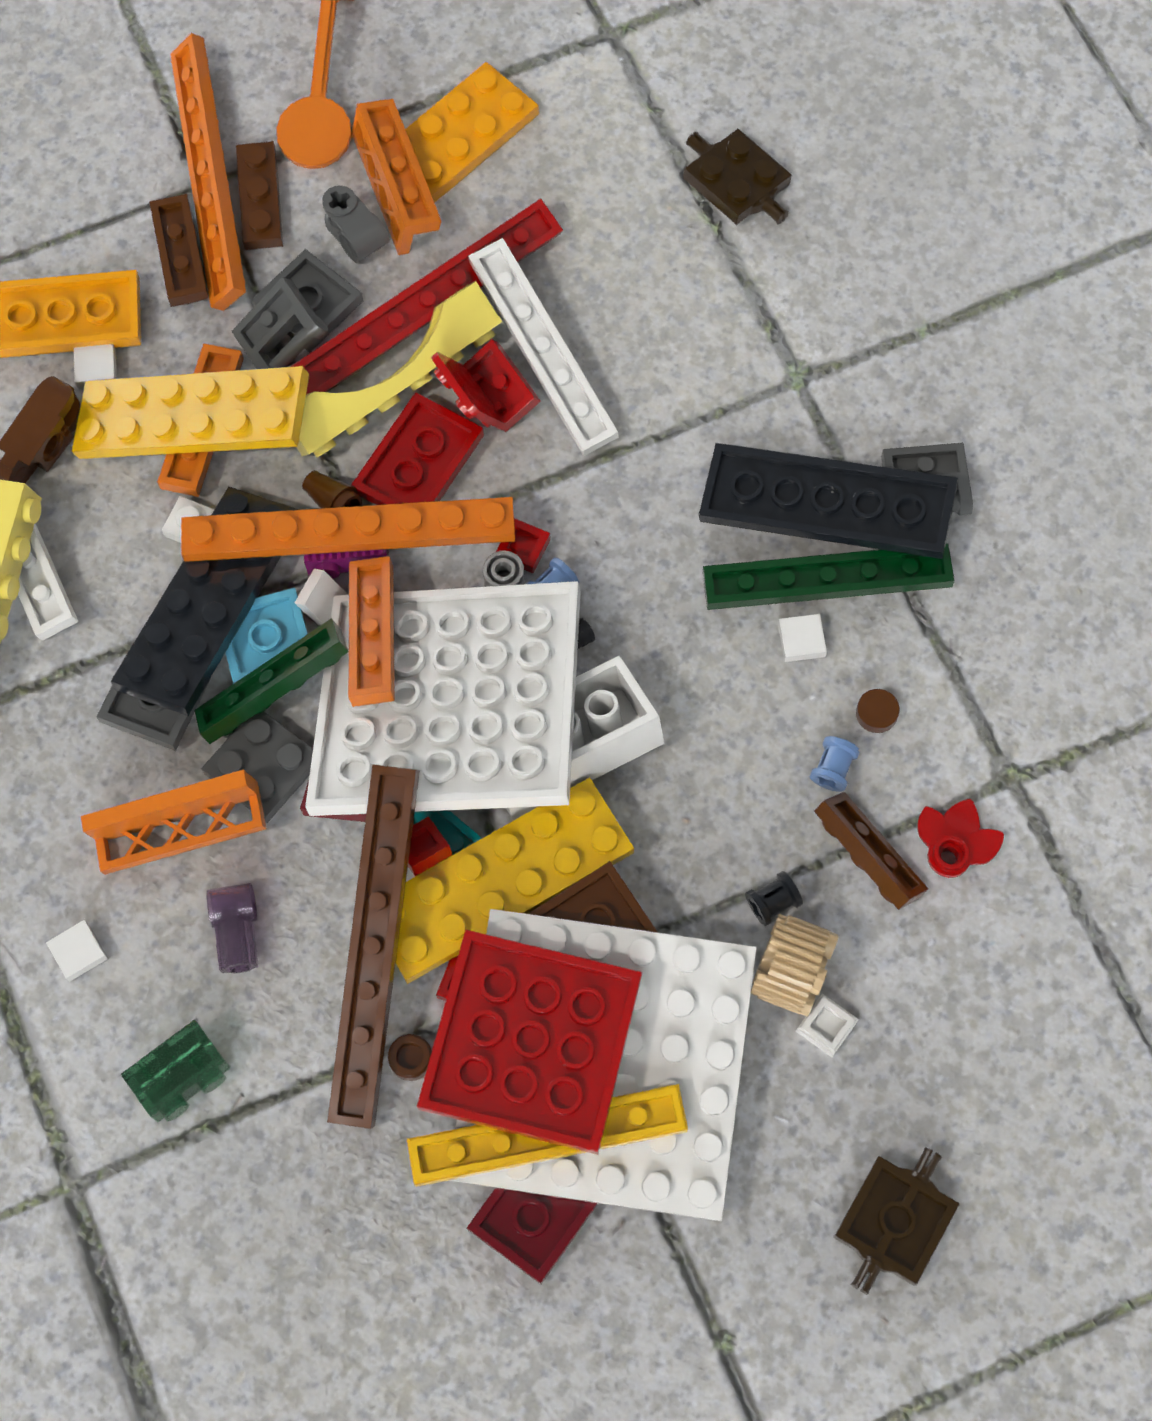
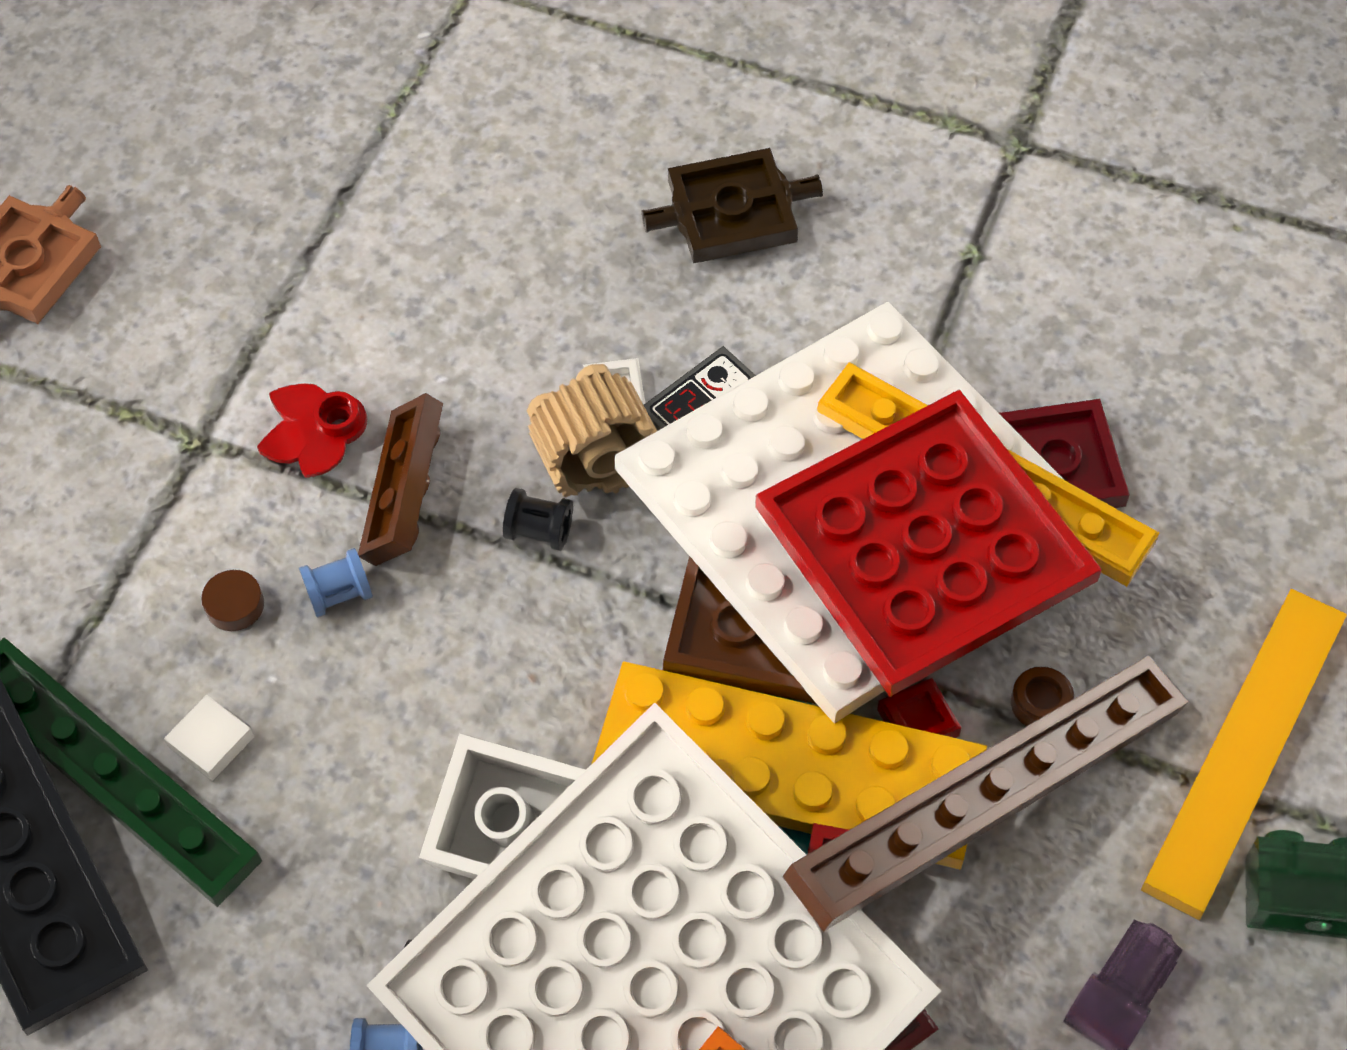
camera: 135 degrees left, 10 degrees down
(277, 1133) = (1243, 755): none -> yellow tile
(772, 1065) = (697, 387): none -> tile

